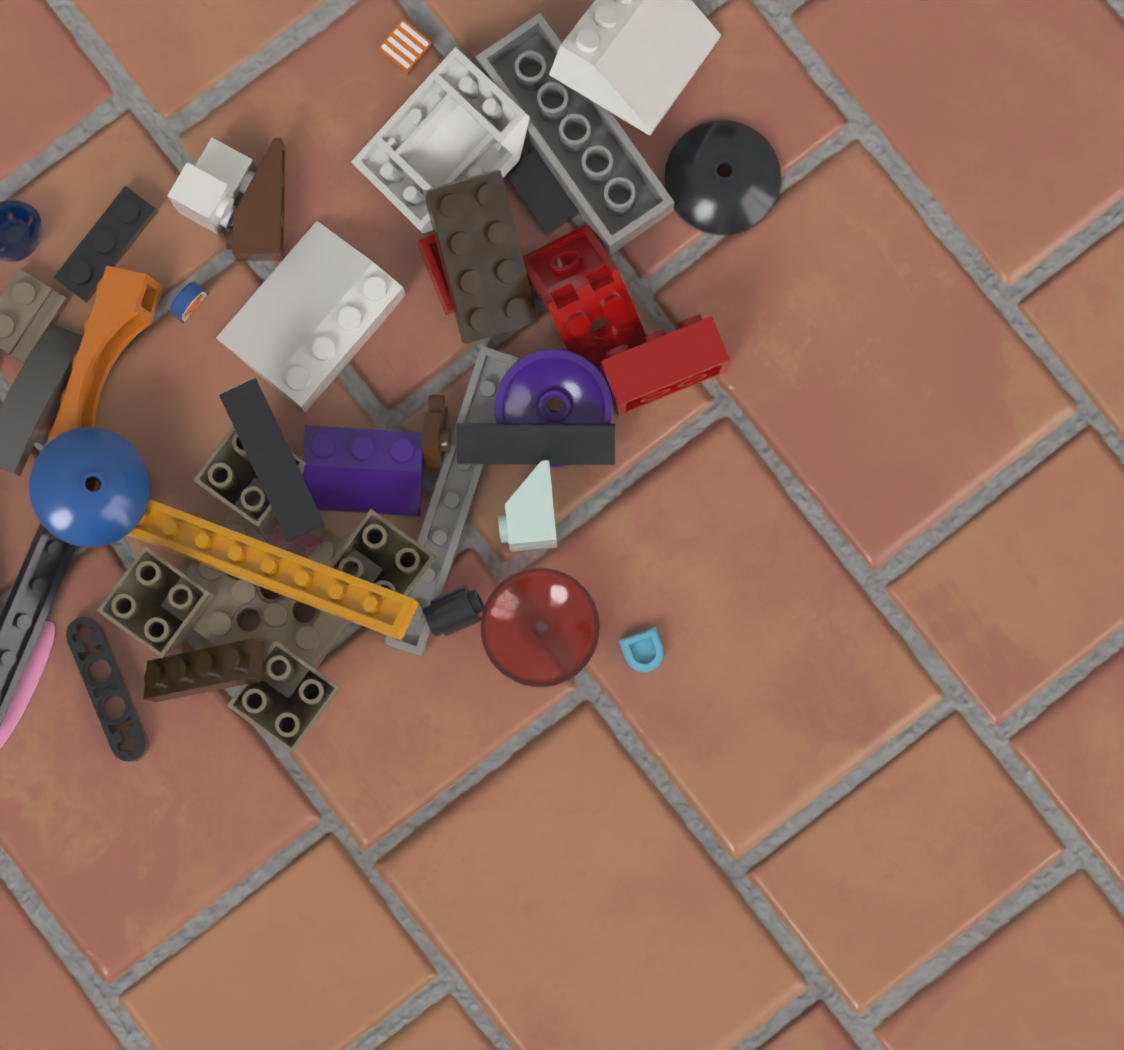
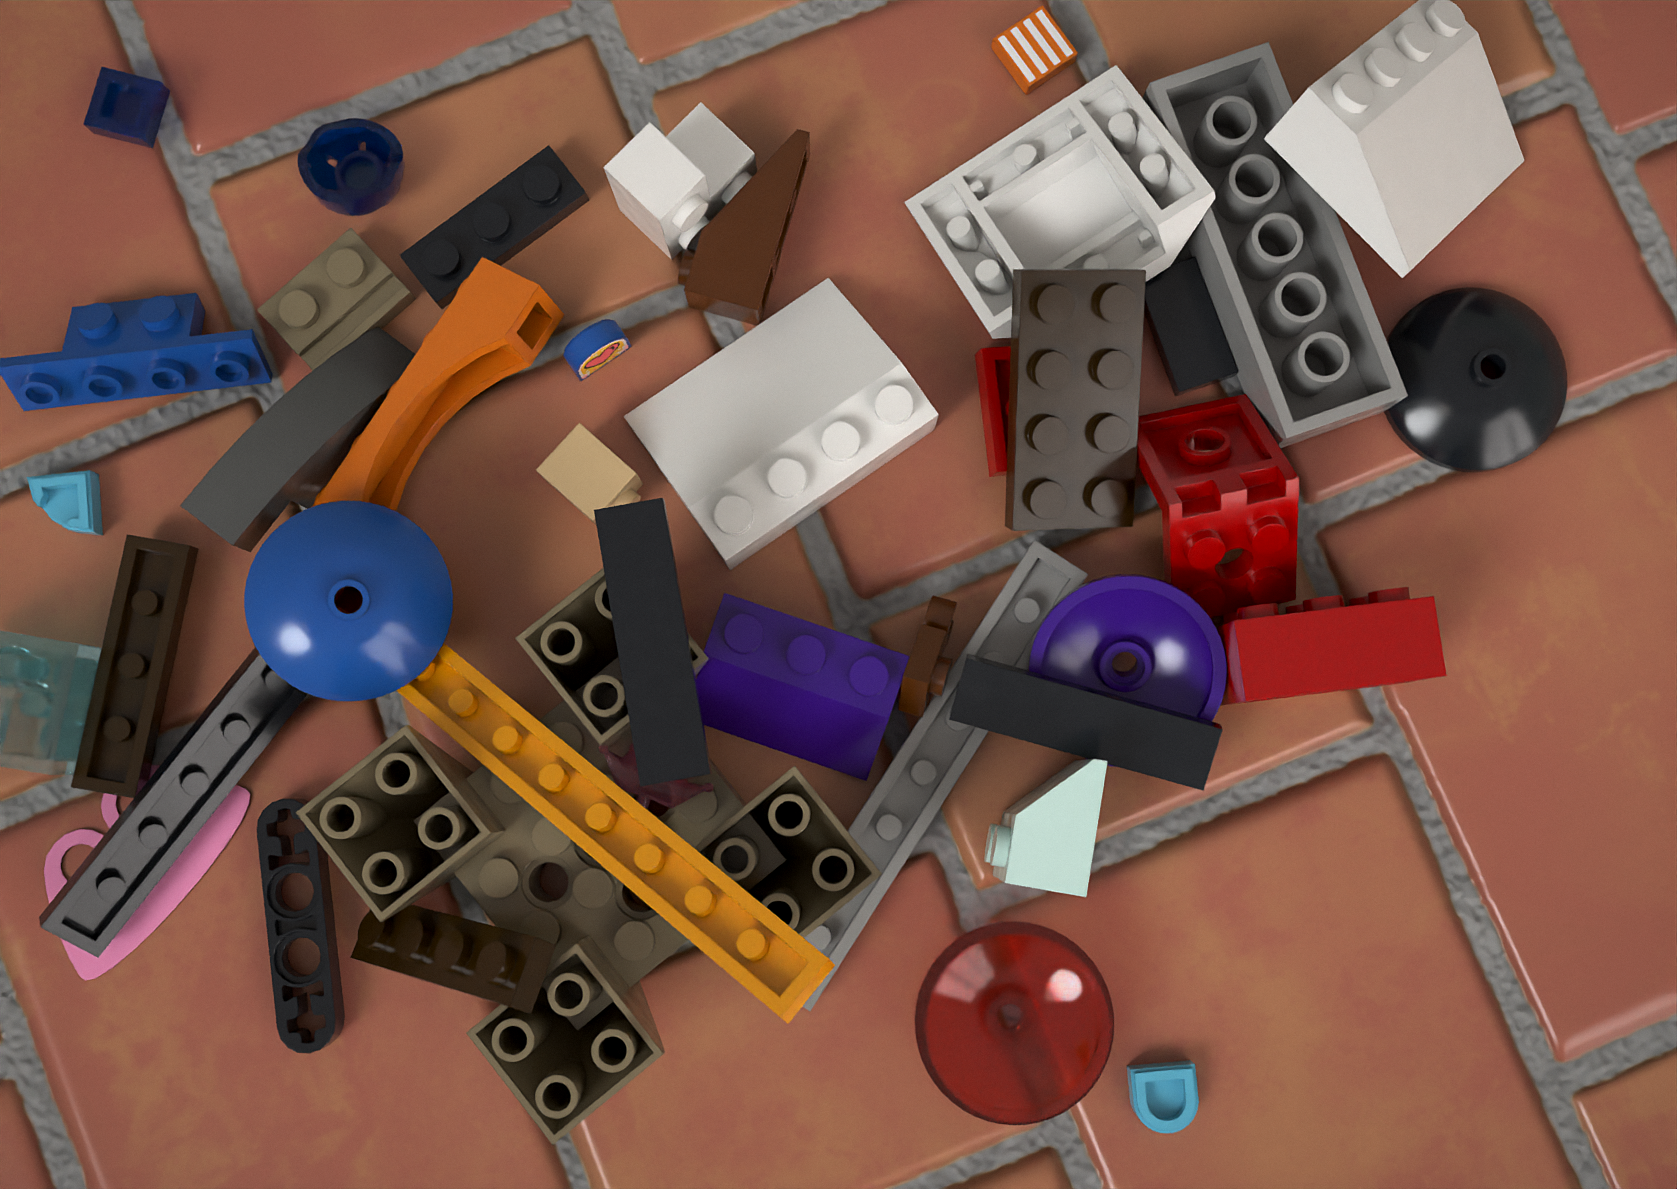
camera: 10 degrees right, 0 degrees up
(206, 378) = (589, 474): none -> tan brick
(454, 611) = (882, 959): black brick -> none

